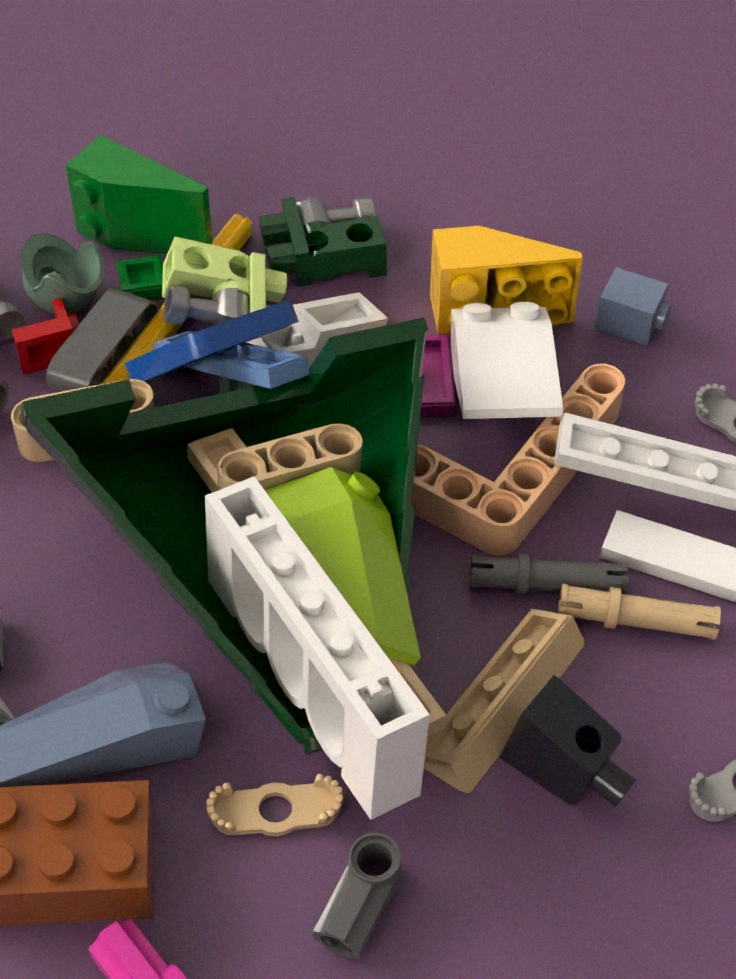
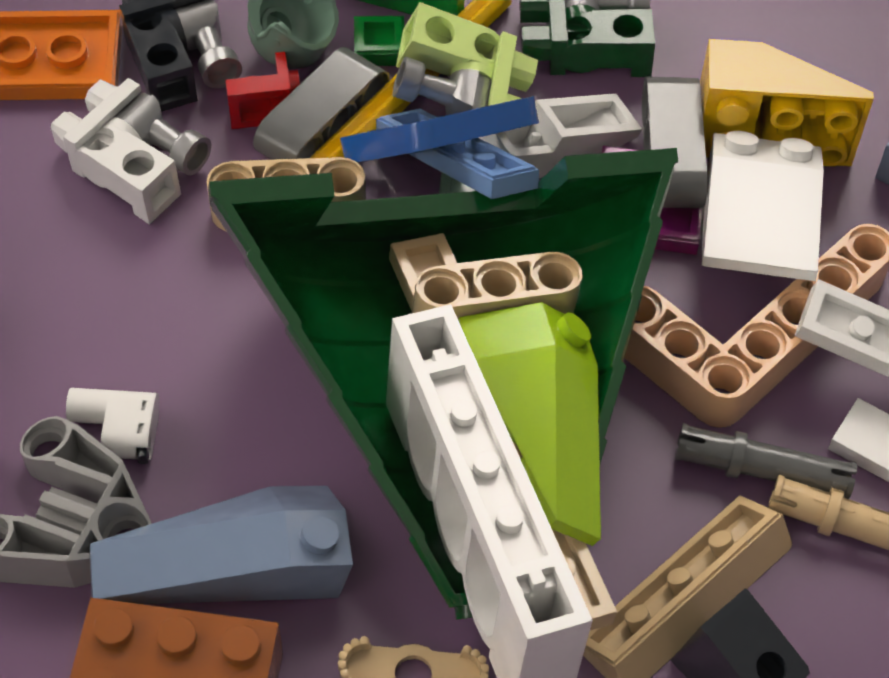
camera: 10 degrees right, 5 degrees up
(414, 295) = (675, 120): none -> beam

